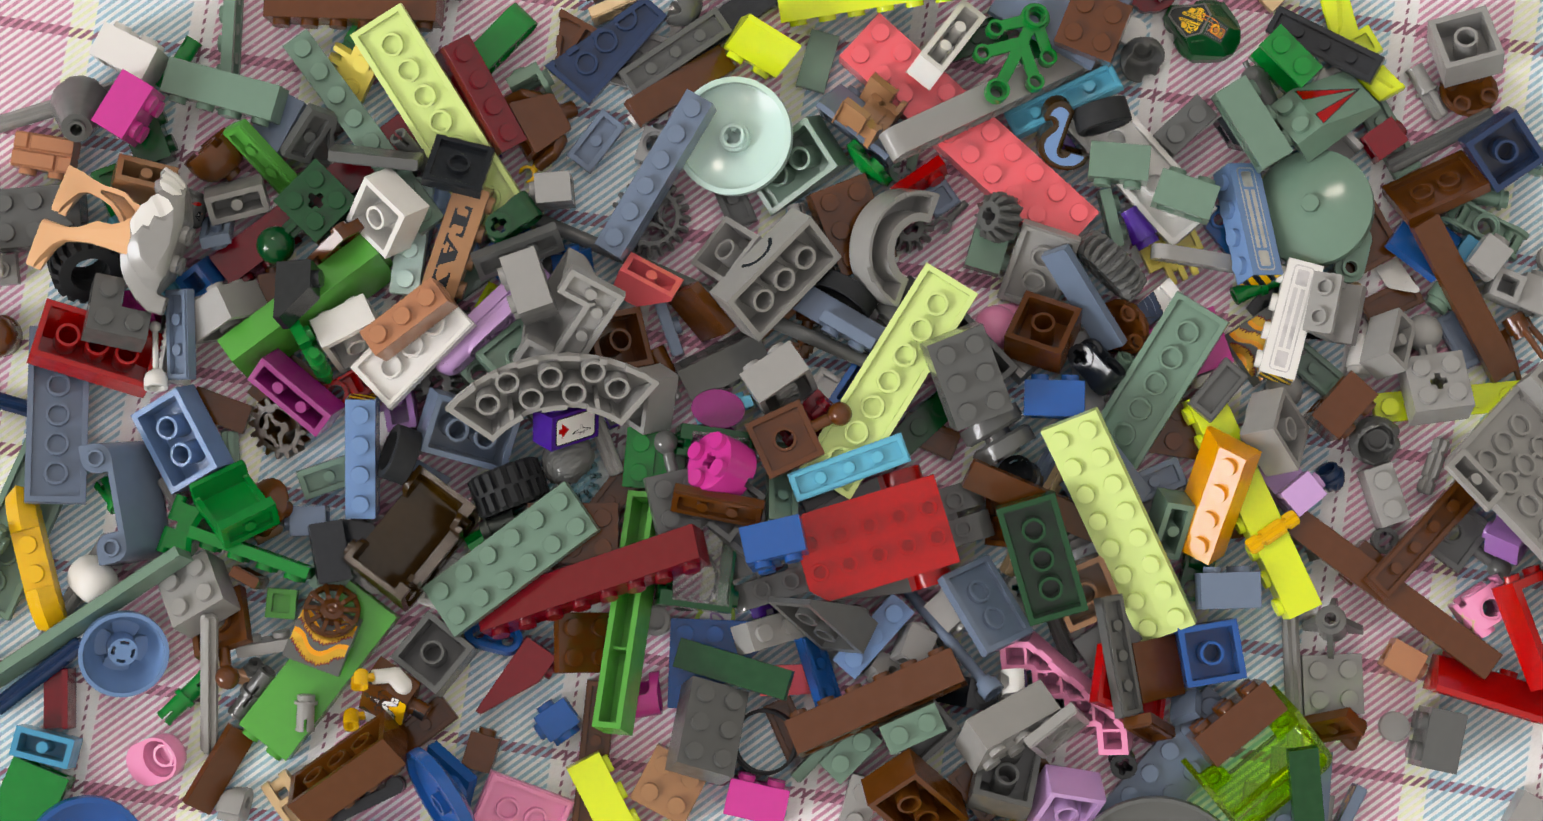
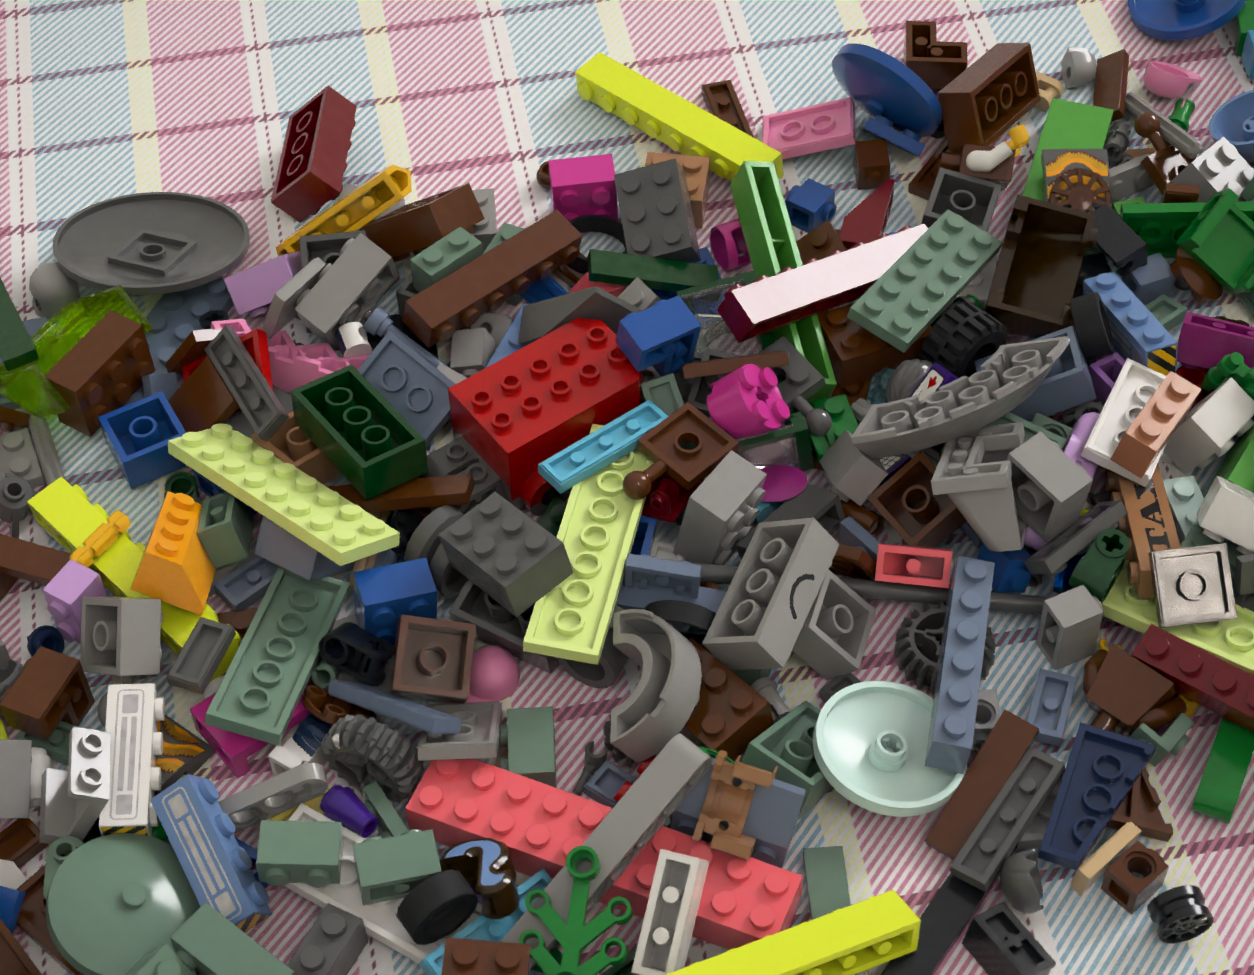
camera: 160 degrees right, 35 degrees down
(305, 710) = (1059, 130): light grey pin -> none
(760, 47) = (905, 856): neon yellow slope -> none
(998, 217) = (528, 747): dark grey gear -> none
(1228, 589) = (138, 483): sand blue brick -> none

